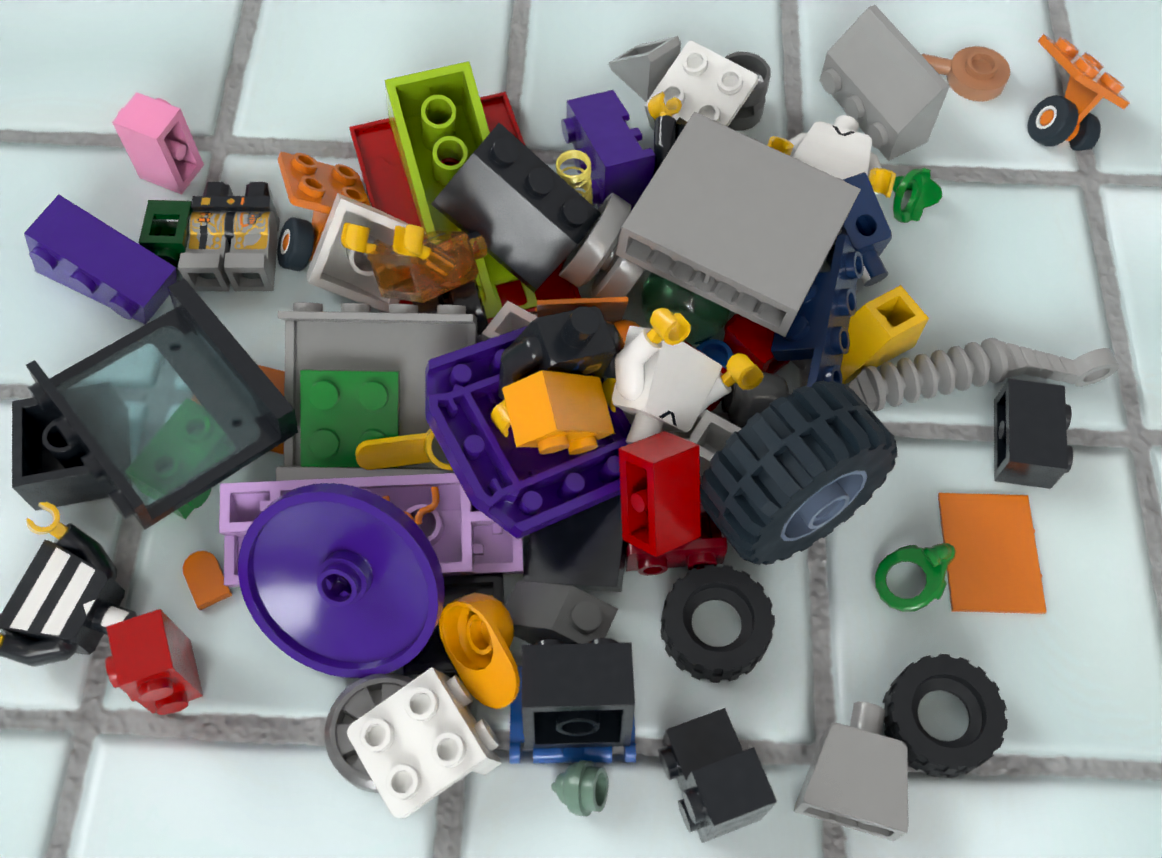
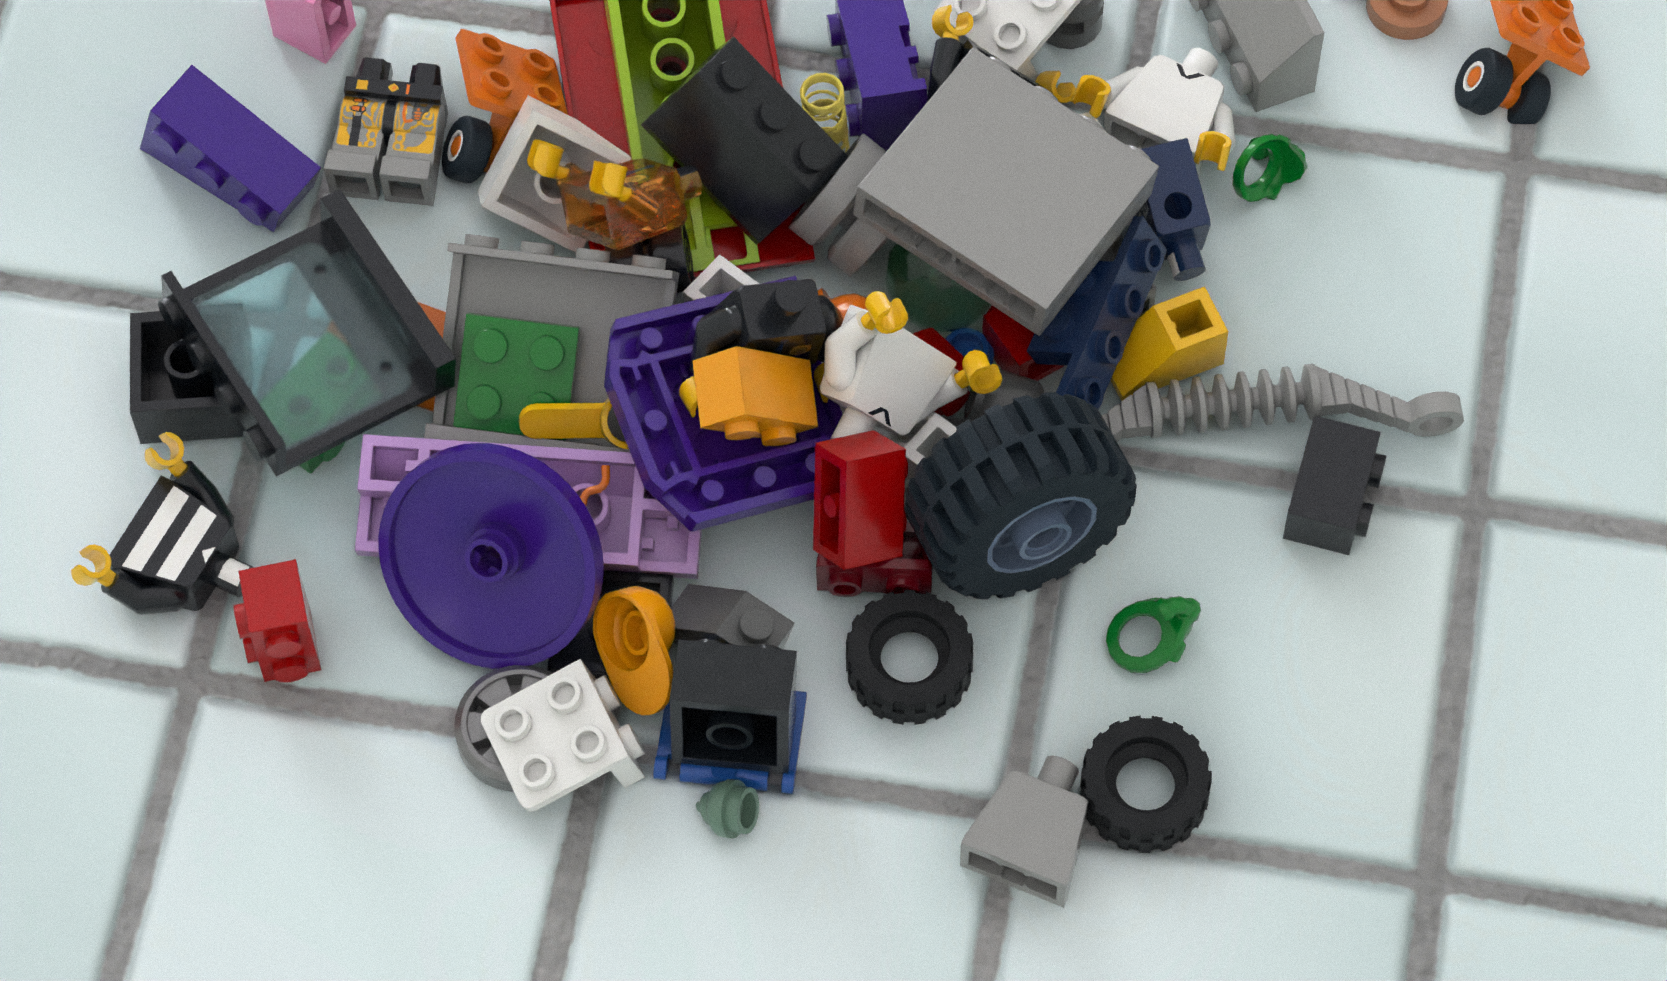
camera: 10 degrees right, 0 degrees up
(166, 237) = (311, 115): dark green brick -> none
(205, 579) = (331, 543): orange piece -> none
(580, 550) = (765, 556): black tile -> none
(611, 307) = (829, 278): orange window -> none
(717, 778) = (872, 812): black brick -> none
(994, 555) = (1254, 619): orange window -> none

